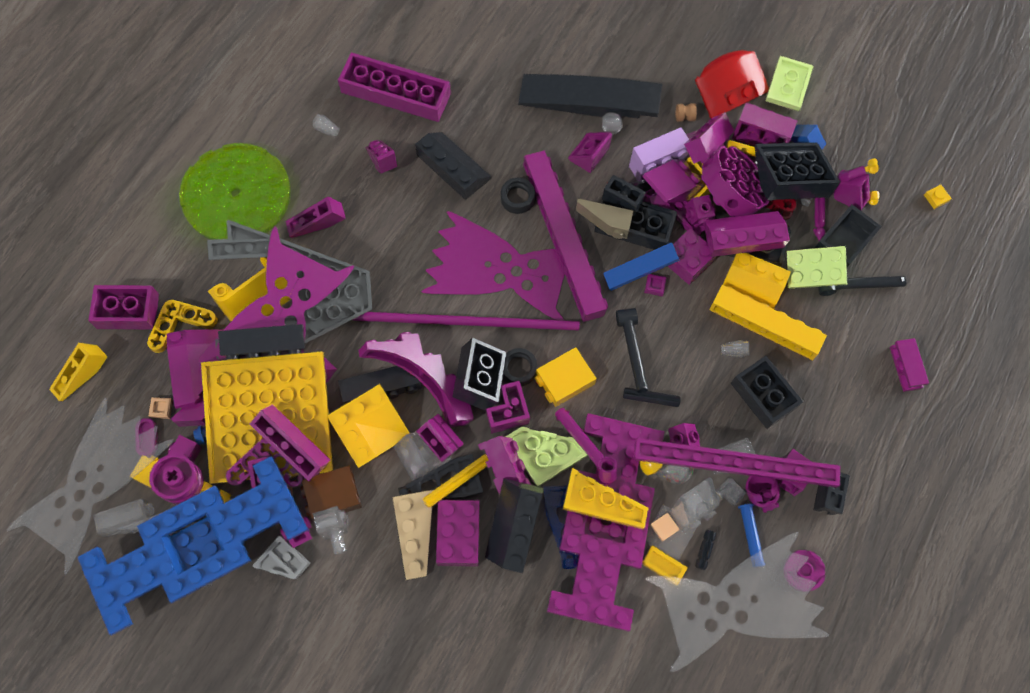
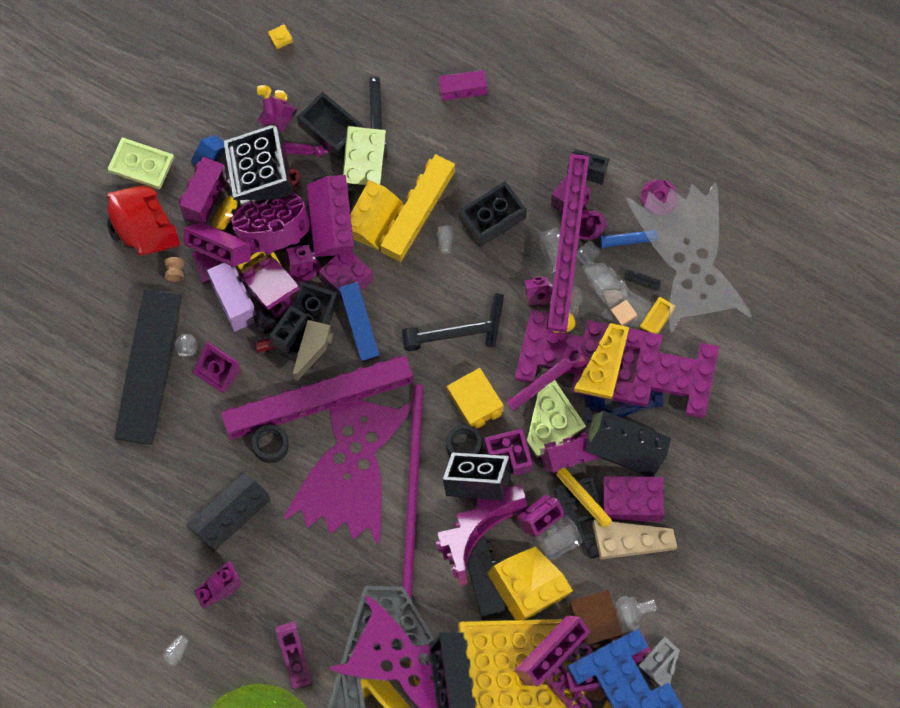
camera: 85 degrees left, 0 degrees up
(394, 87) = (131, 574): magenta brick -> none
(655, 285) = (375, 310): magenta tile -> none

